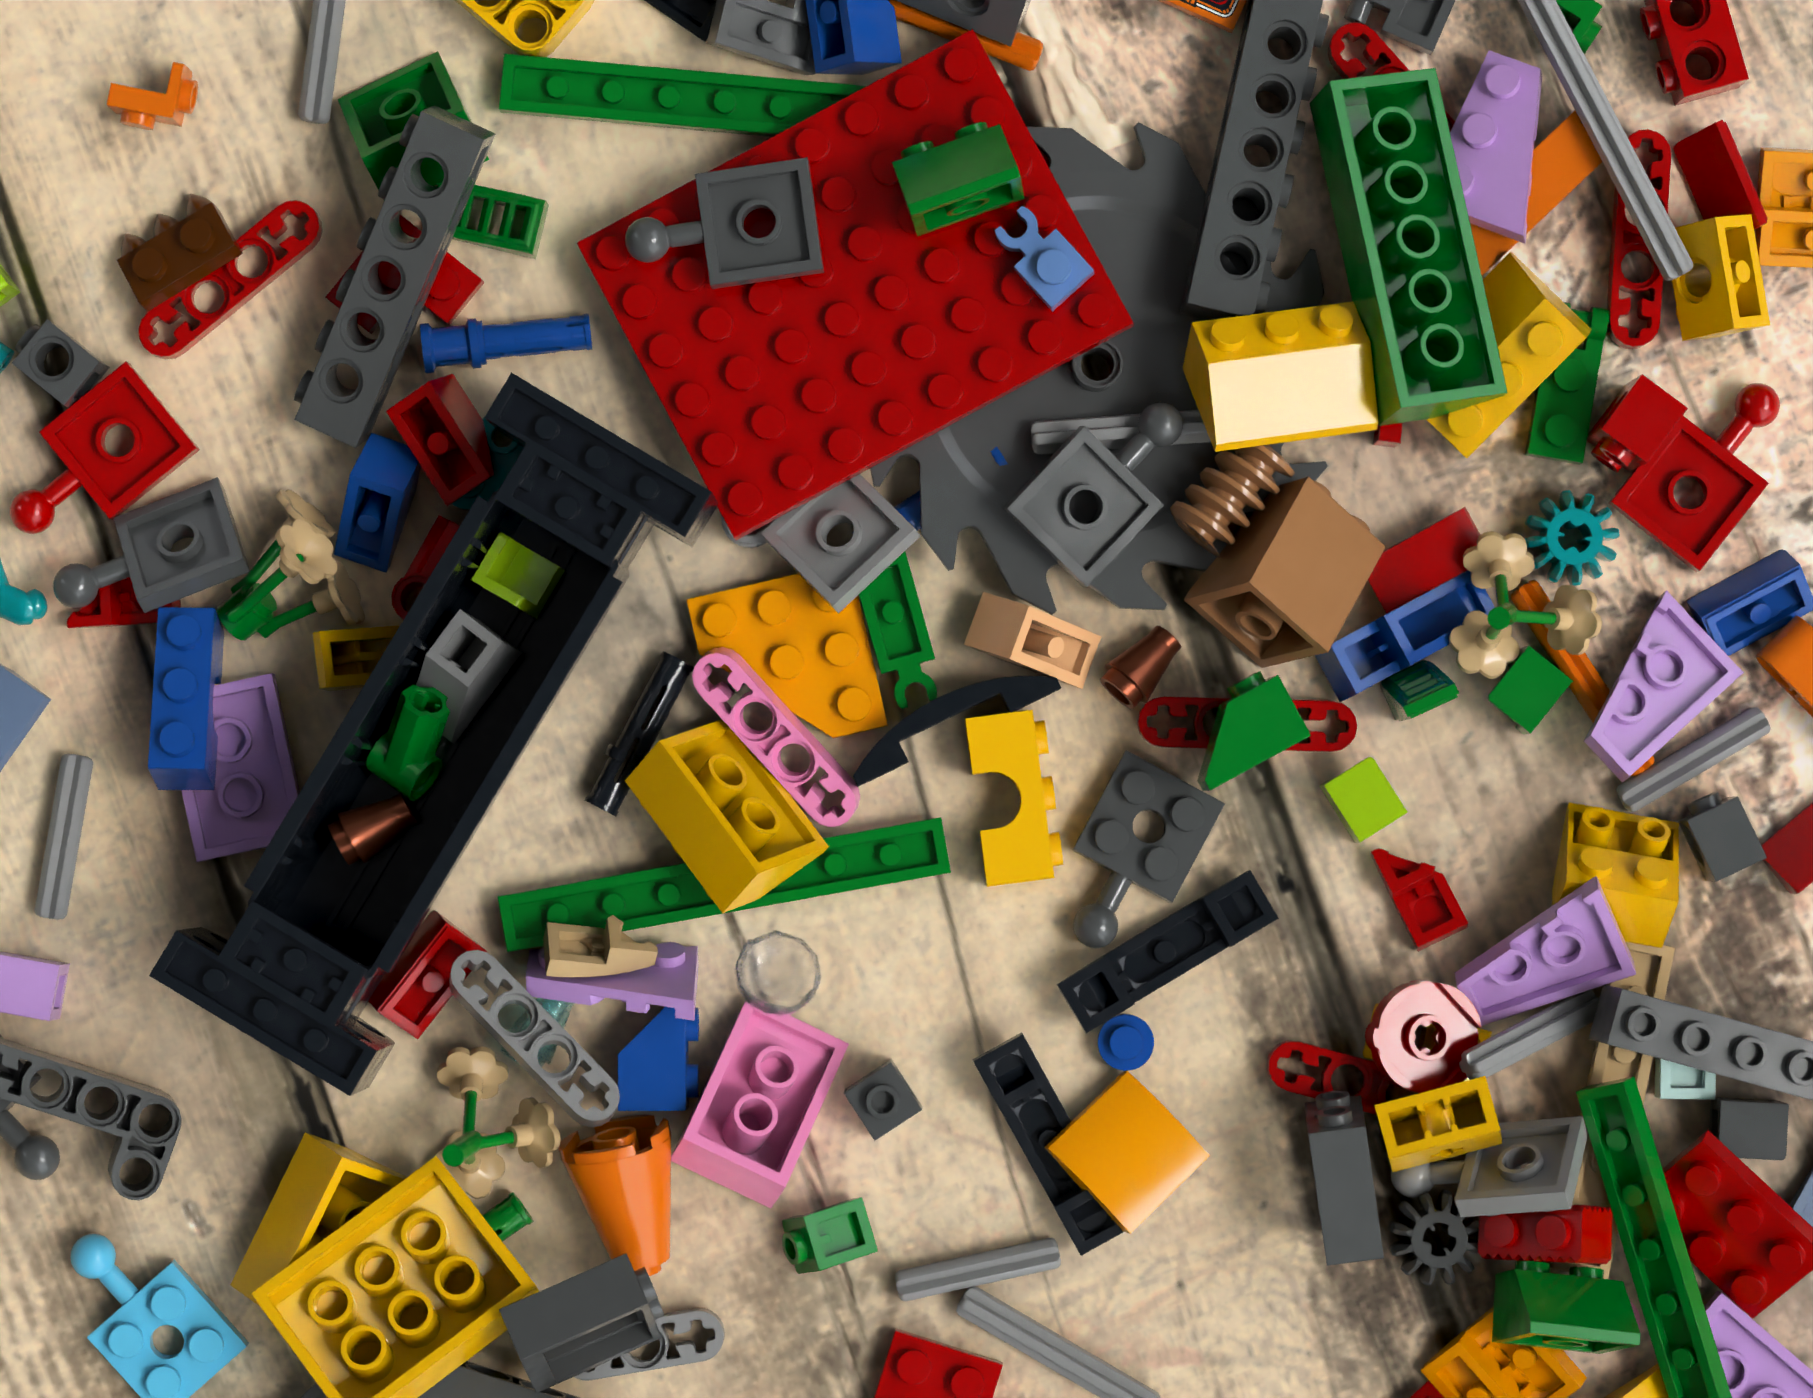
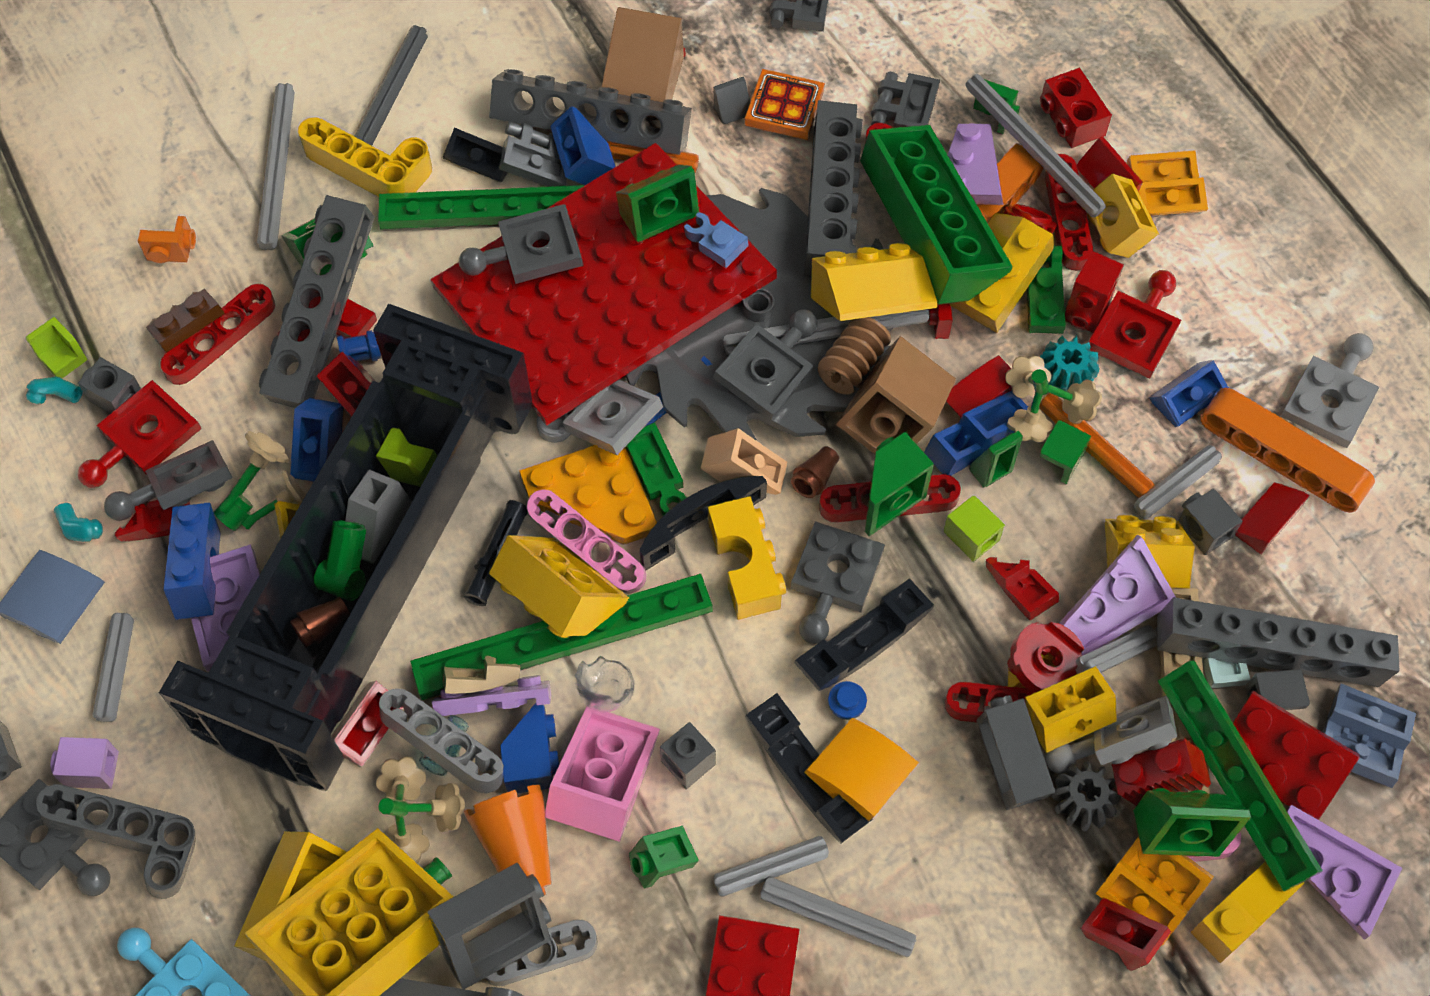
camera: 10 degrees left, 25 degrees down
(532, 227) = (386, 292): green slope -> none
(1587, 262) = (1033, 215): none -> red gear
(1660, 688) = (1147, 439): lavender wing -> none

